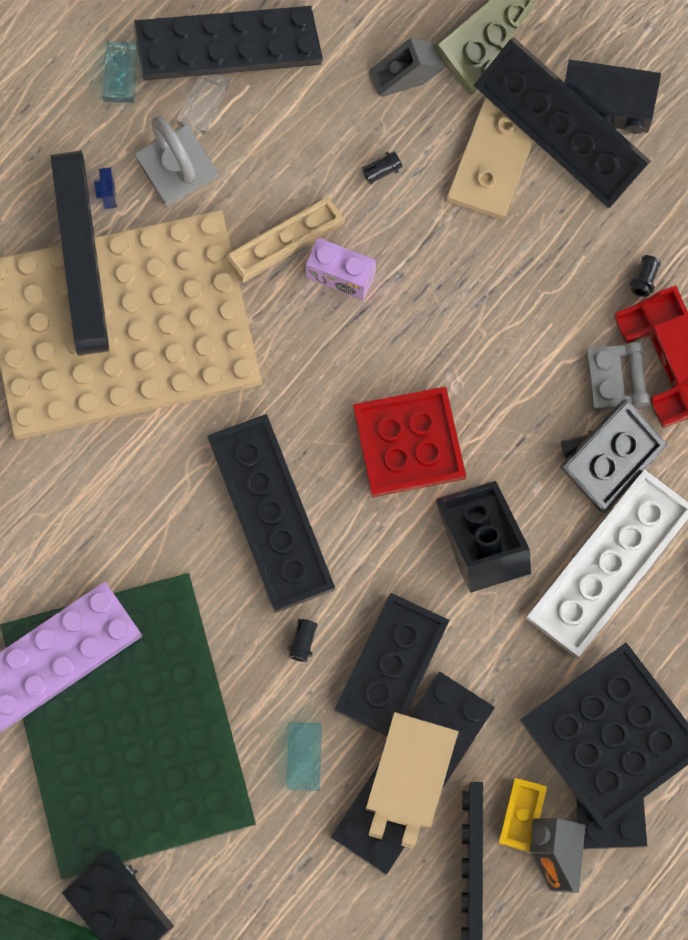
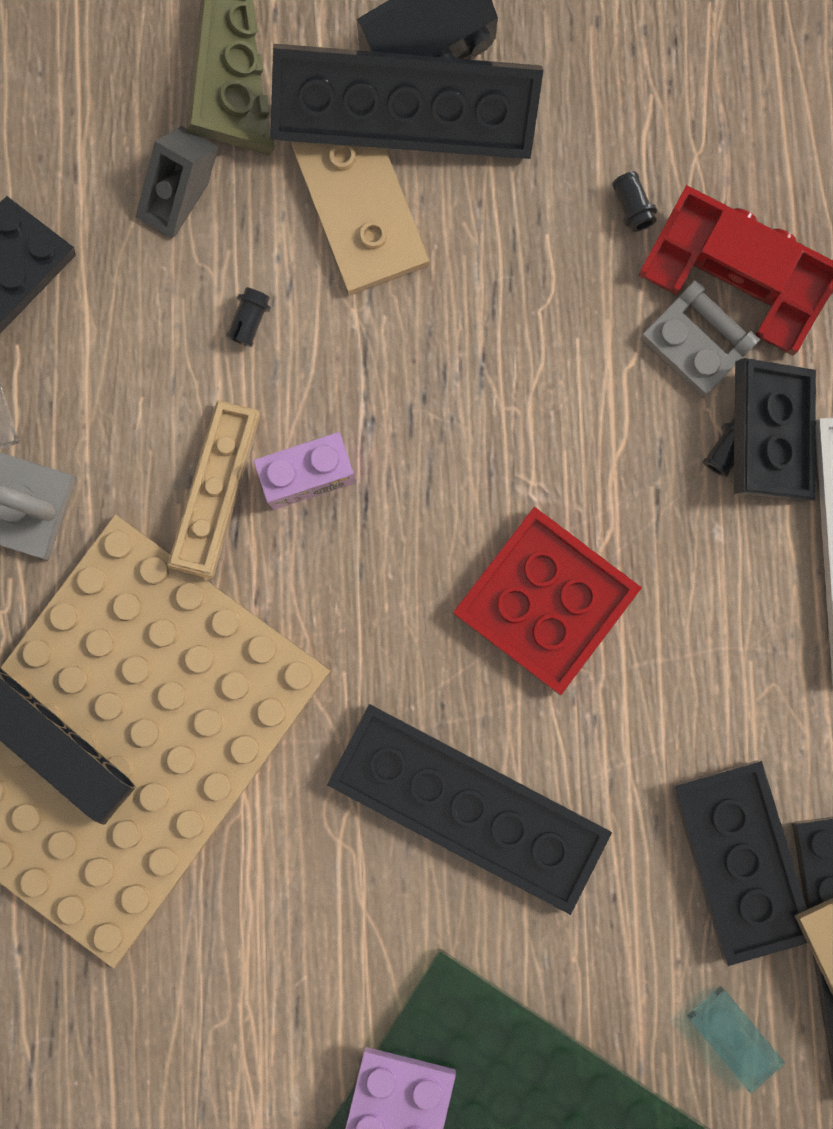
camera: 40 degrees left, 10 degrees up
(302, 640) = (626, 918): black pin -> none
(484, 536) = (716, 636): black slope -> none

